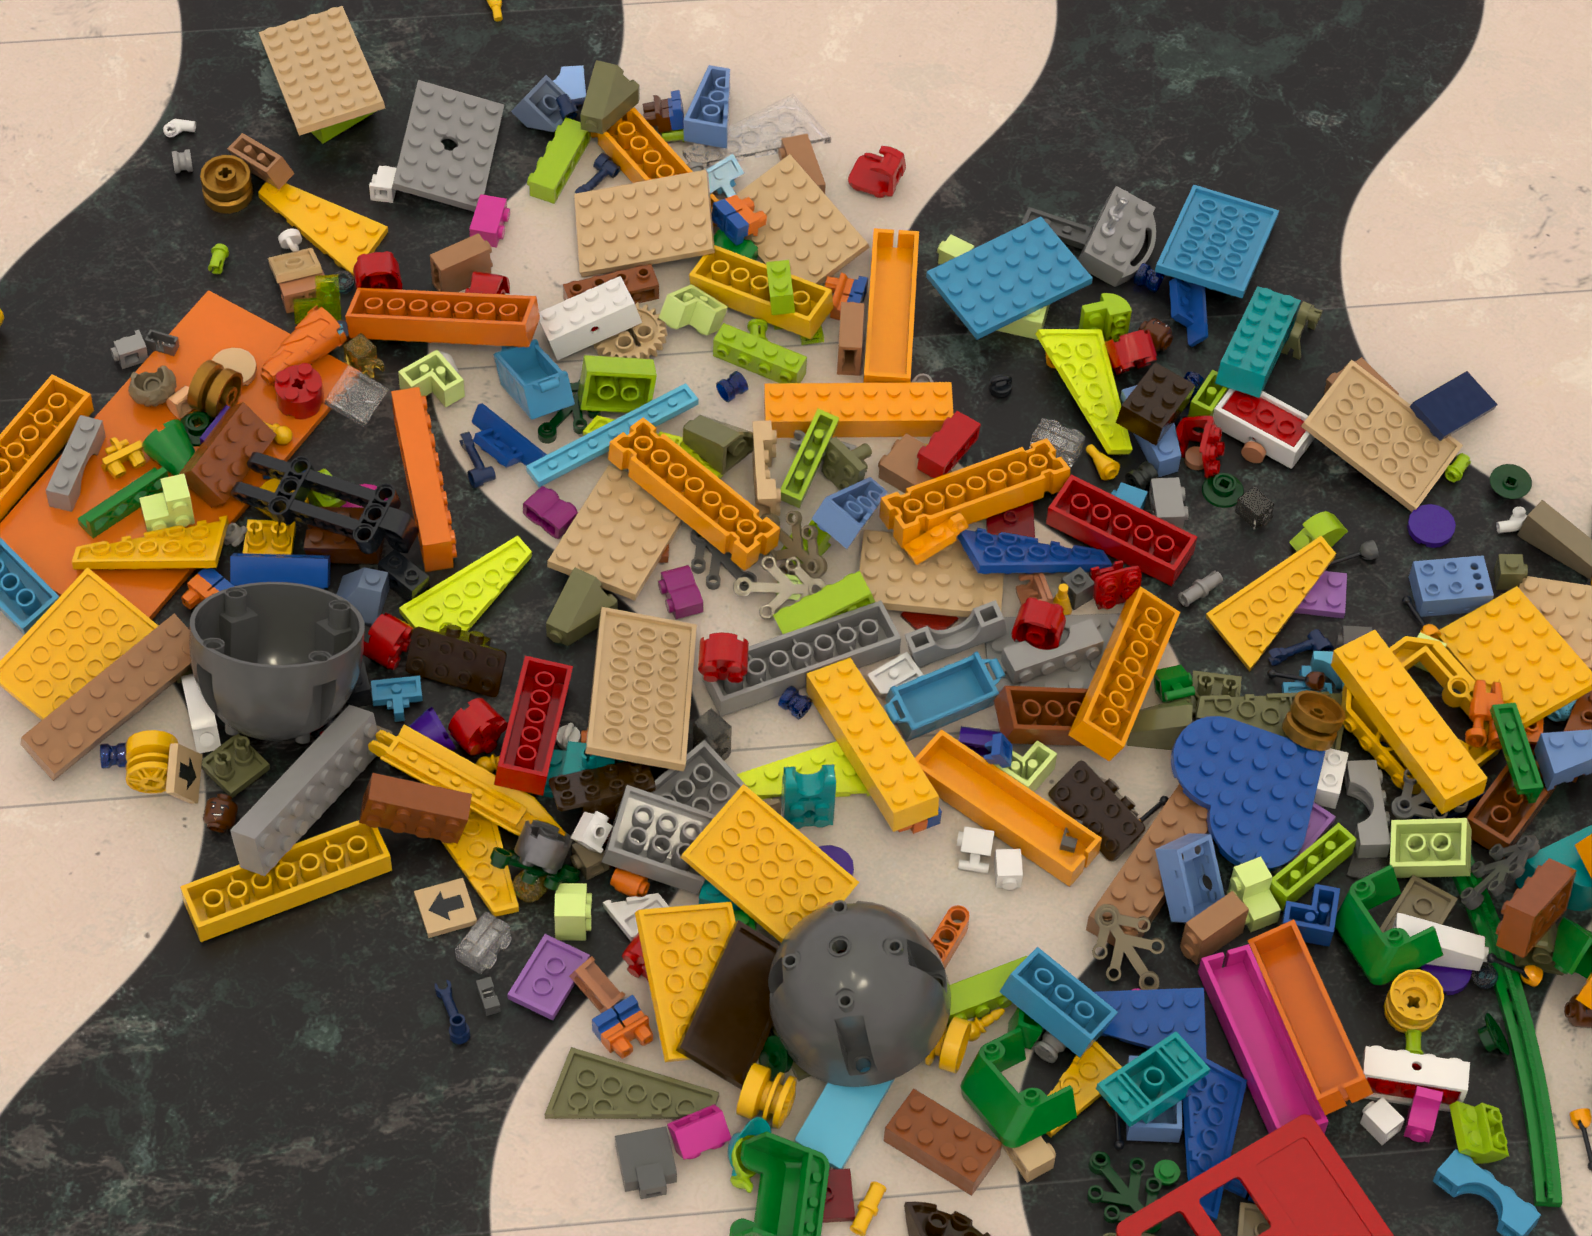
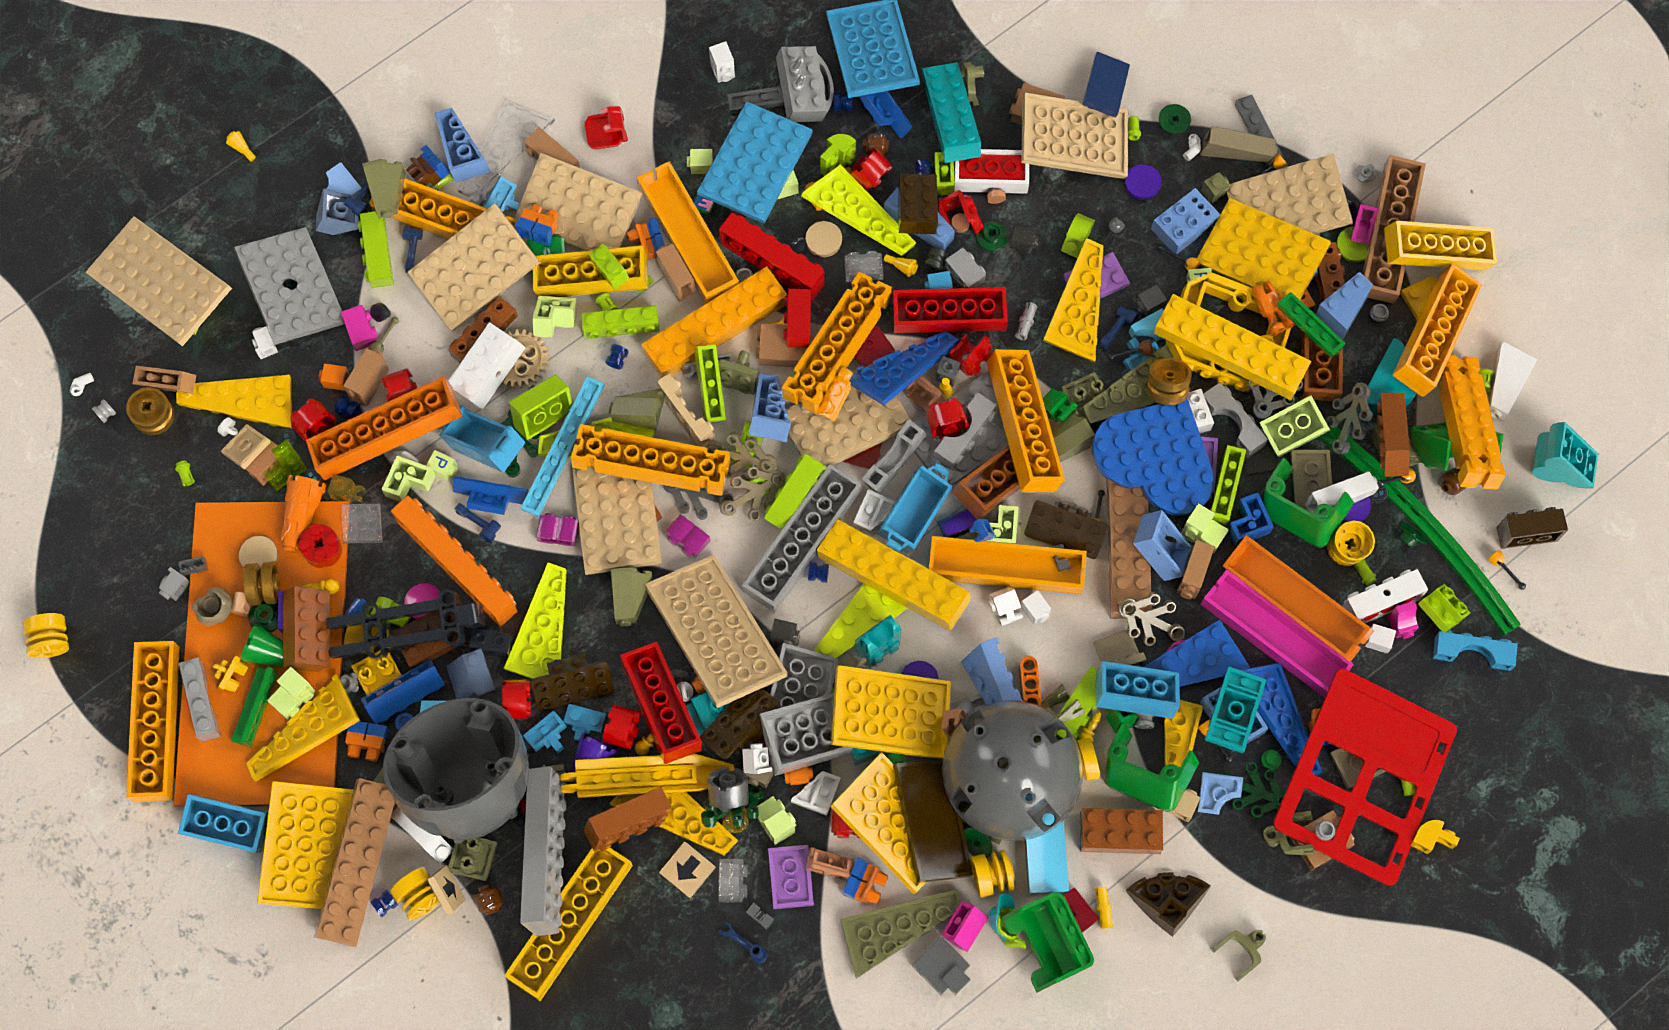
camera: 30 degrees left, 15 degrees up
(421, 281) = (347, 407): none -> clear blue wheel
(426, 245) = (334, 376): none -> orange brick
(443, 701) = (584, 720): none -> dark azure hinge
(478, 388) = (442, 465): none -> yellowish green brick
(496, 247) = (378, 344): none -> olive hinge
(520, 218) = (379, 312): none -> black tile
(723, 657) = (759, 576): red brick -> none
(909, 888) = (989, 673): none -> medium blue wedge
(929, 296) = (704, 205): none -> tile
(959, 364) = (765, 251): none -> red brick
(960, 977) = (1068, 713): none -> olive piece
(1034, 395) = (823, 239): none -> tan tile
(1044, 172) = (722, 62): none -> white brick
(1074, 958) = (1119, 649): none -> dark tan bracket
(1081, 1164) = (1217, 790): none -> light blue tile

